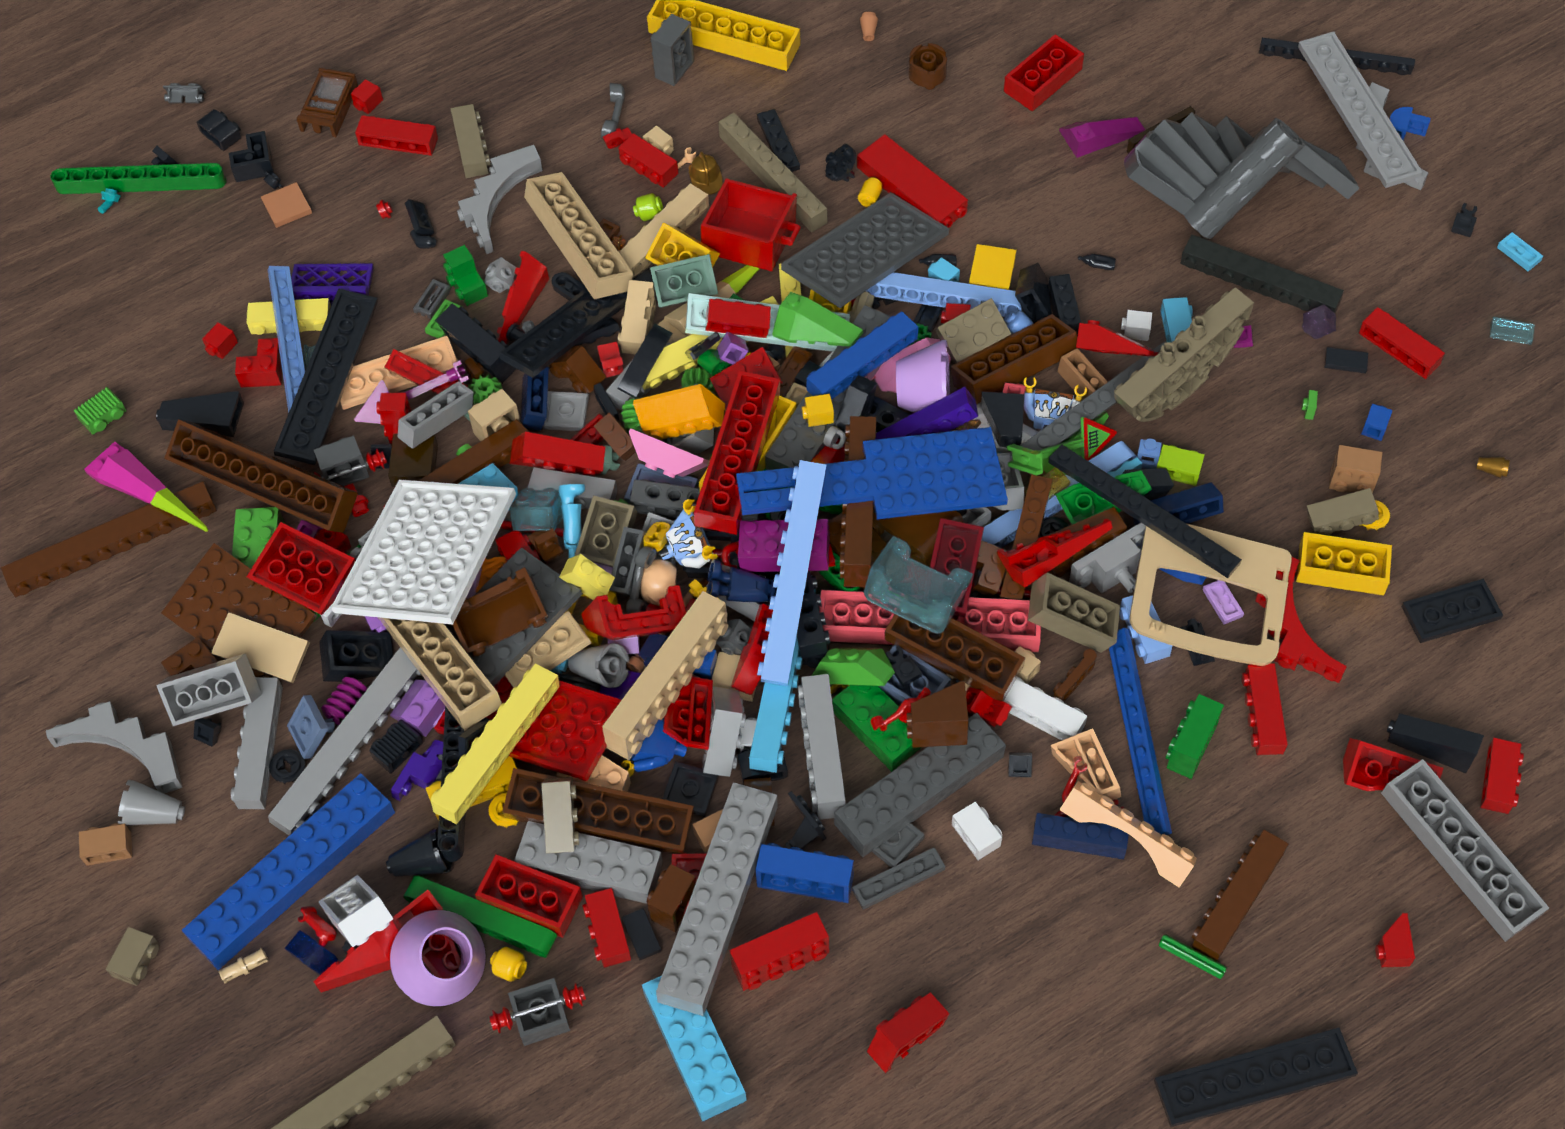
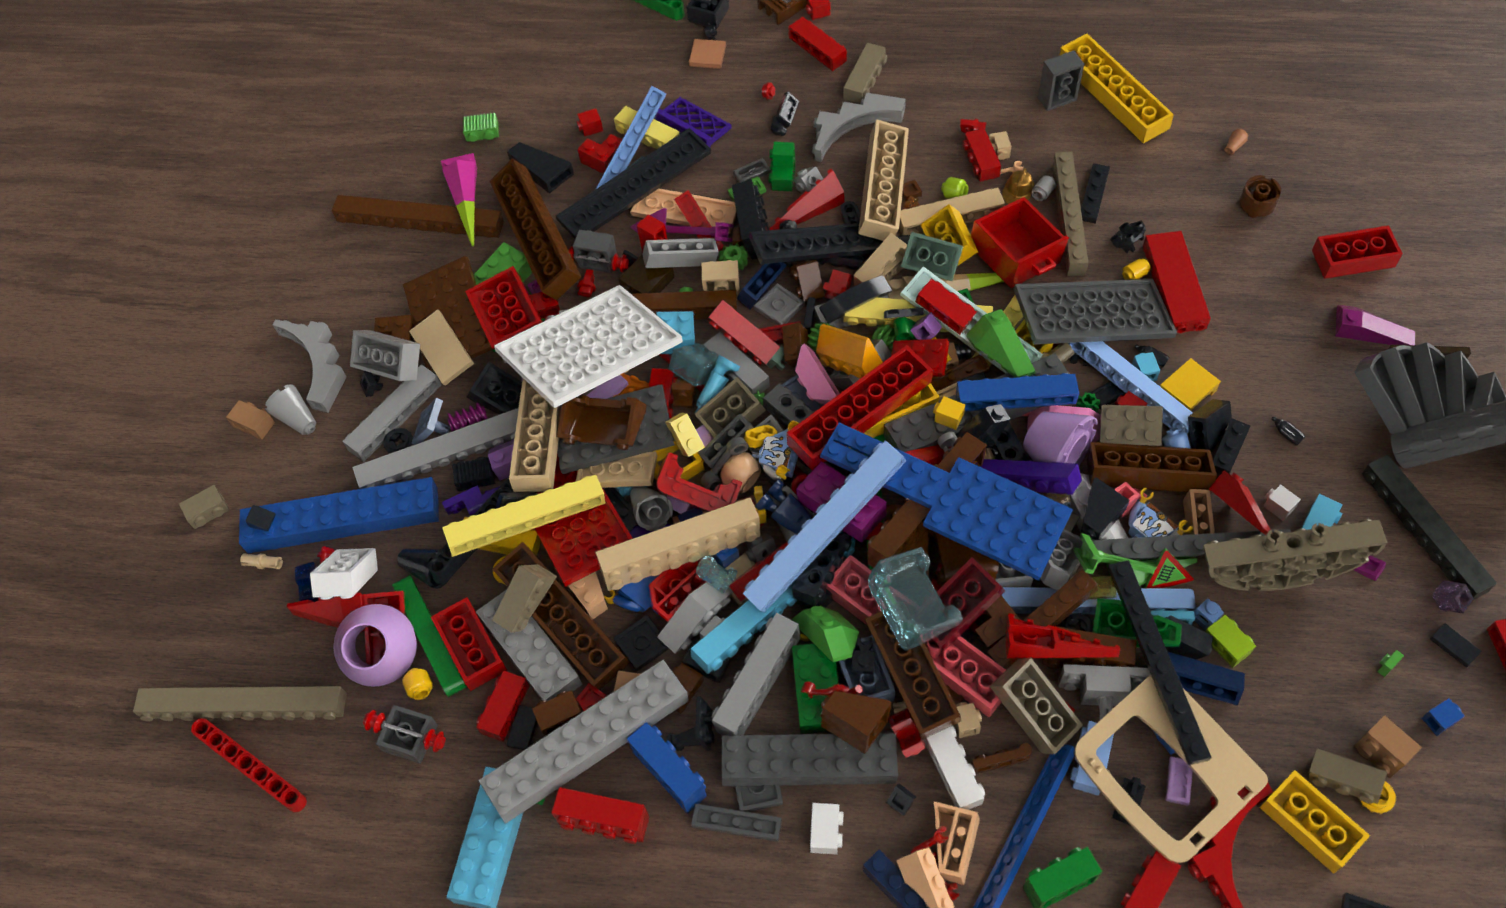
camera: 40 degrees right, 0 degrees up
(218, 921) = (260, 518): none -> black slope
(617, 95) = (996, 95): dark grey piece -> none
(716, 682) = (715, 574): none -> clear light blue leg
(730, 161) = (1043, 188): none -> light grey brick

